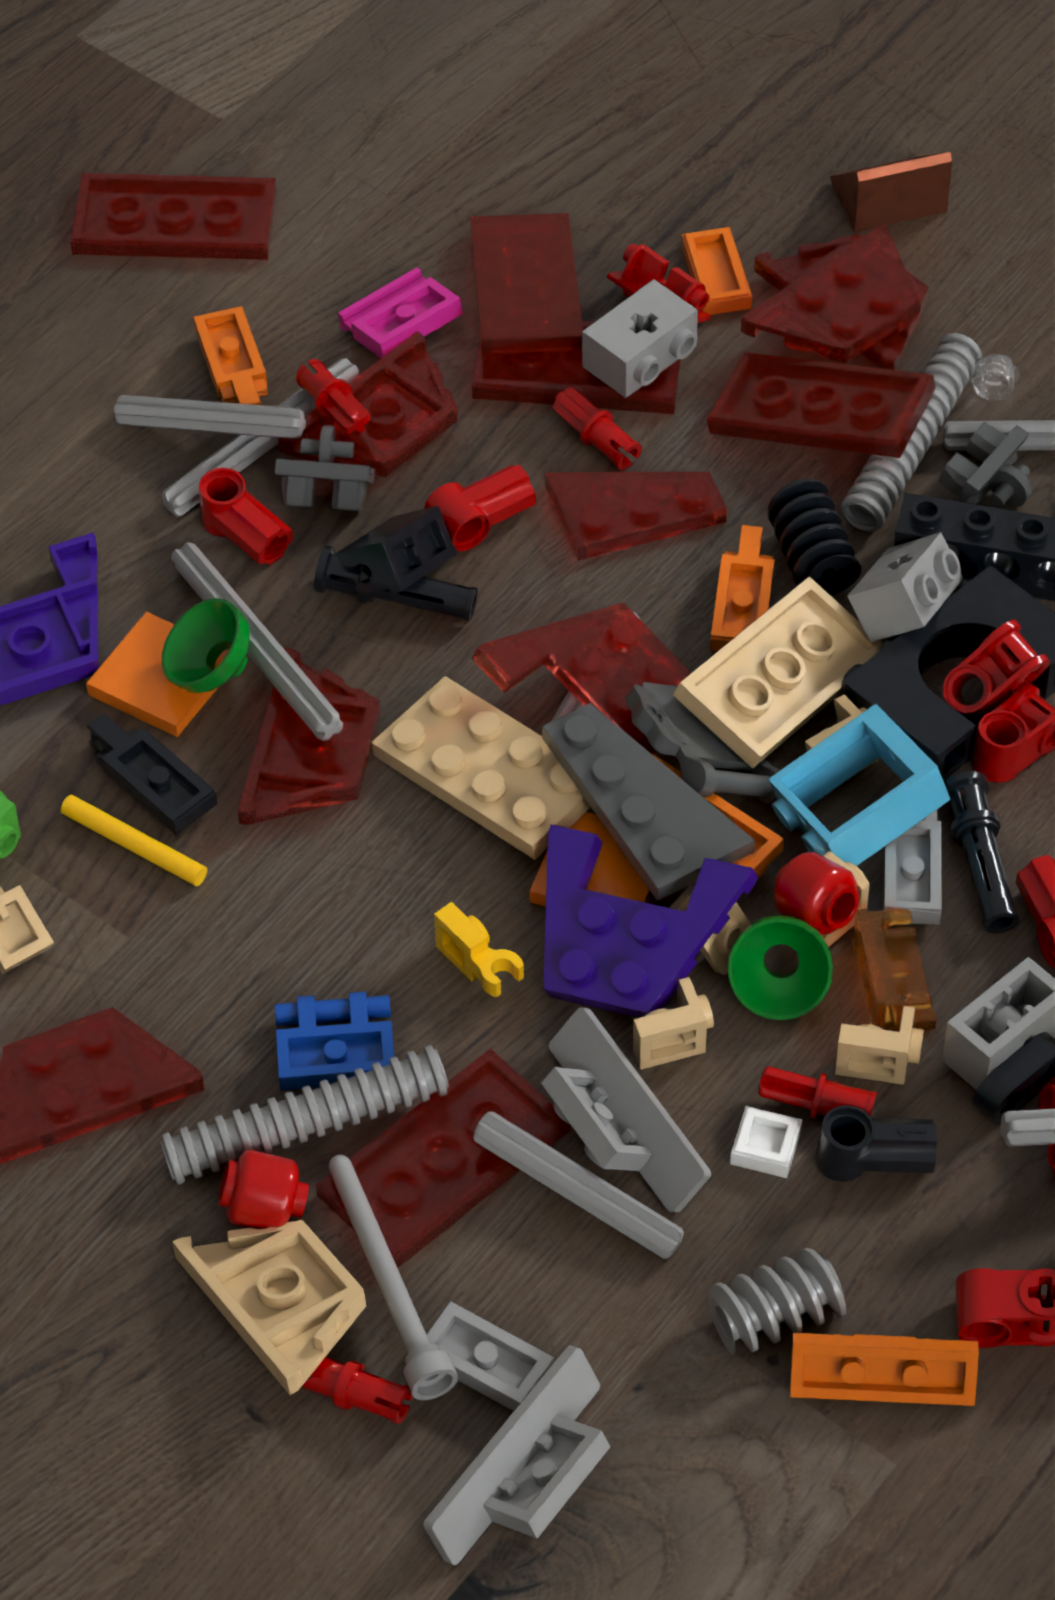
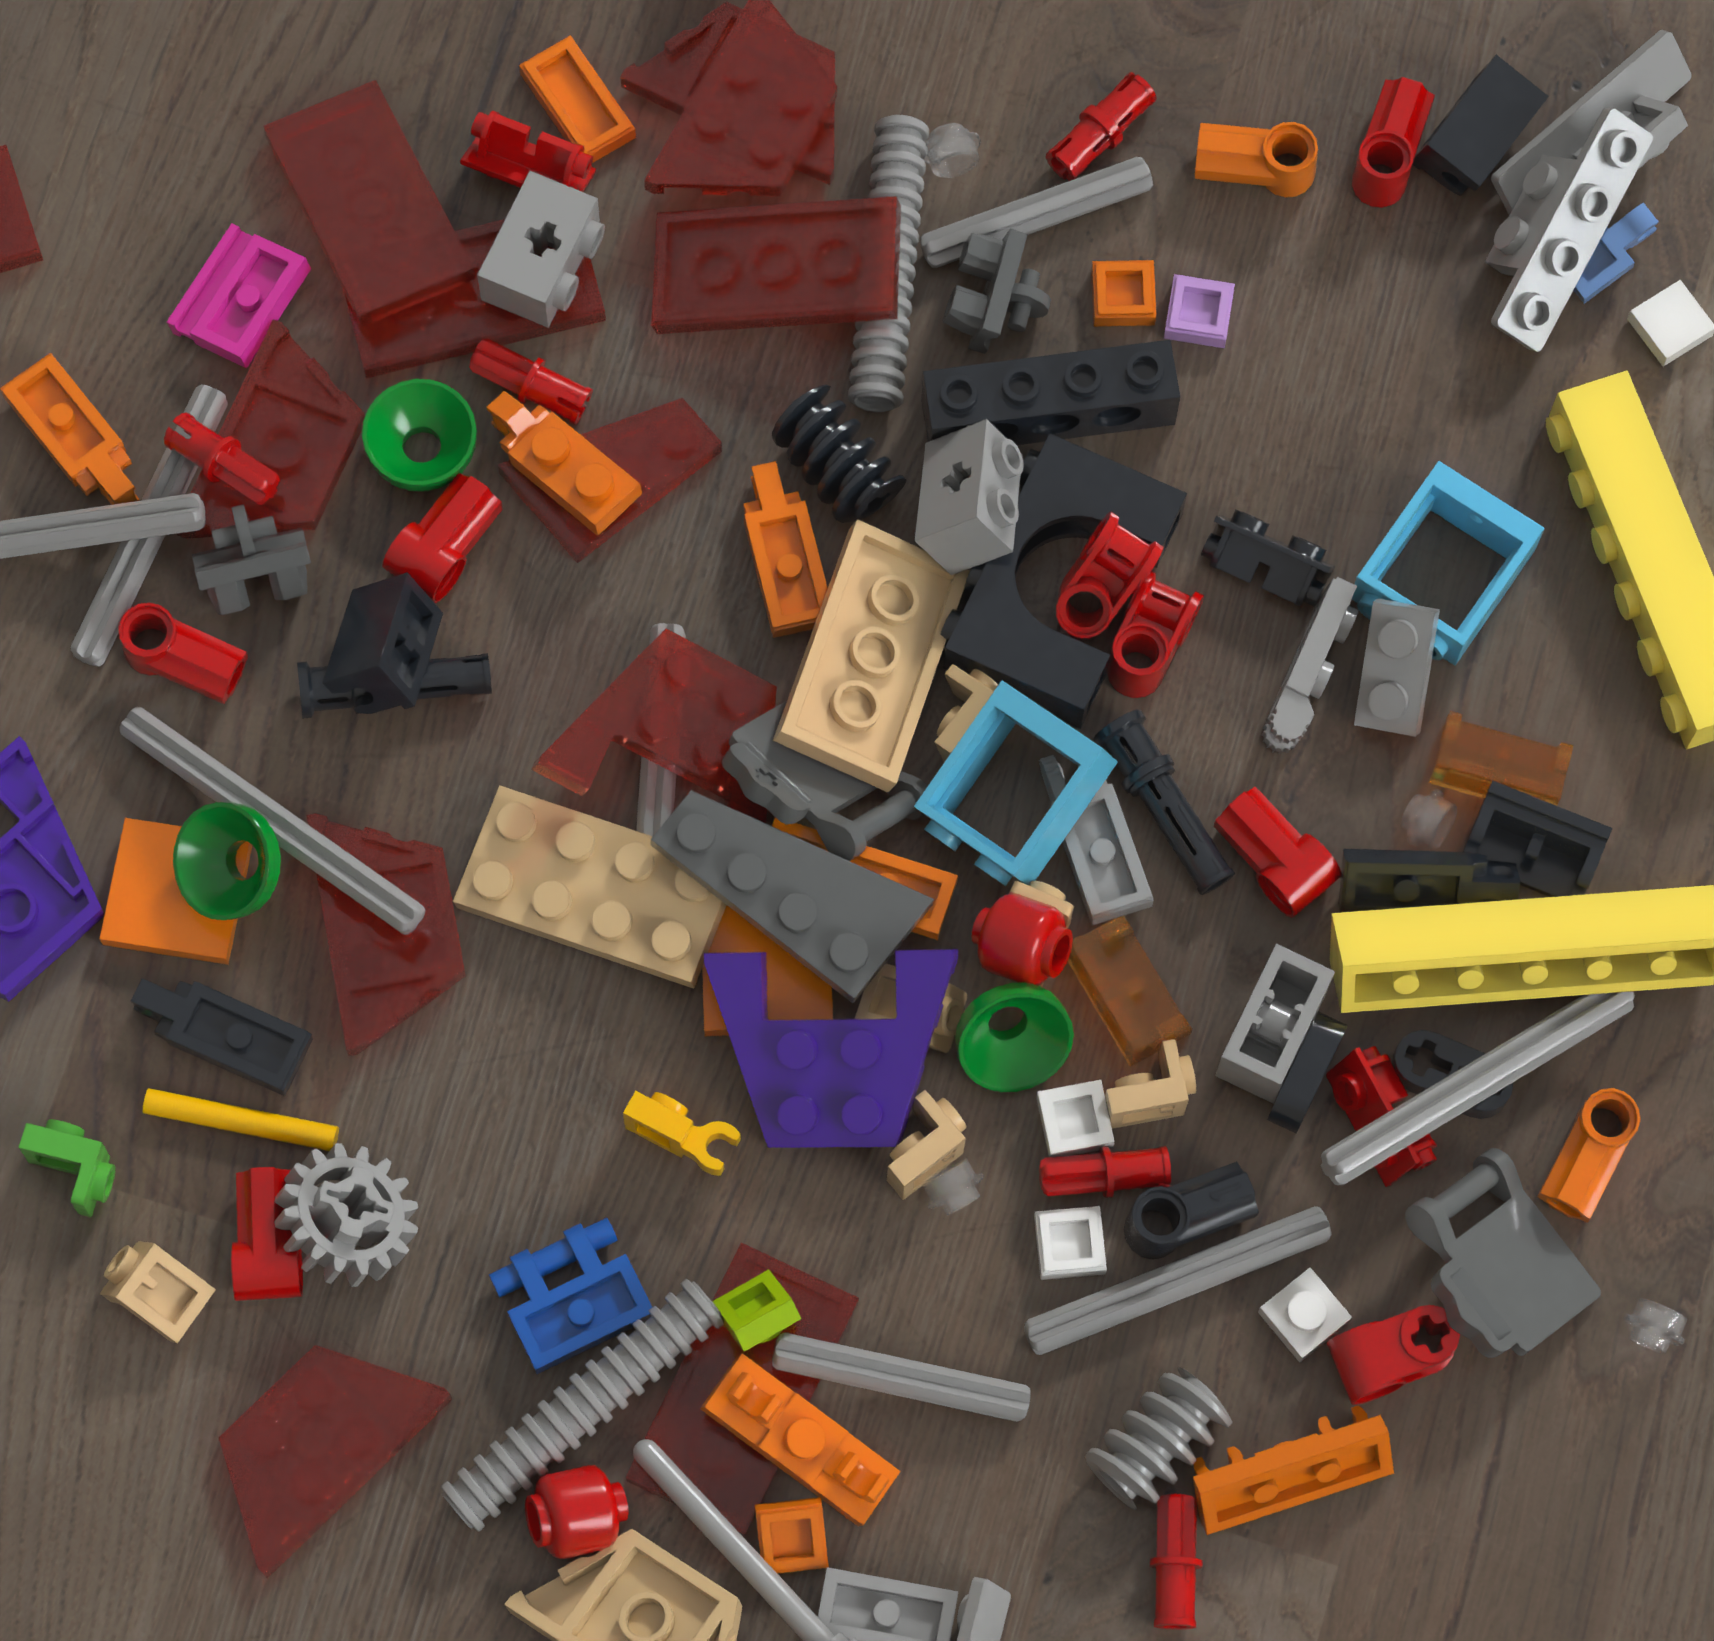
camera: 25 degrees left, 20 degrees up
(108, 930) = (258, 1259): none -> red piece
(180, 919) = (339, 1216): none -> light grey gear
(434, 1271) = (792, 1535): none -> orange tile
(472, 1202) = (800, 1440): none -> orange plate
(478, 1090) = (757, 1310): none -> lime plate
(490, 420) = (412, 409): none -> green piece
(594, 479) = (563, 463): none -> orange hinge
(619, 1113) = (906, 1274): light grey bracket -> none
(684, 1065) = (953, 1187): none -> clear plate
(752, 1407) = (1176, 1562): none -> red axle
(808, 1047) = (1075, 1119): none -> white plate
(847, 1197) = (1177, 1280): none -> light grey axle
(942, 1257) = (1305, 1314): none -> white plate

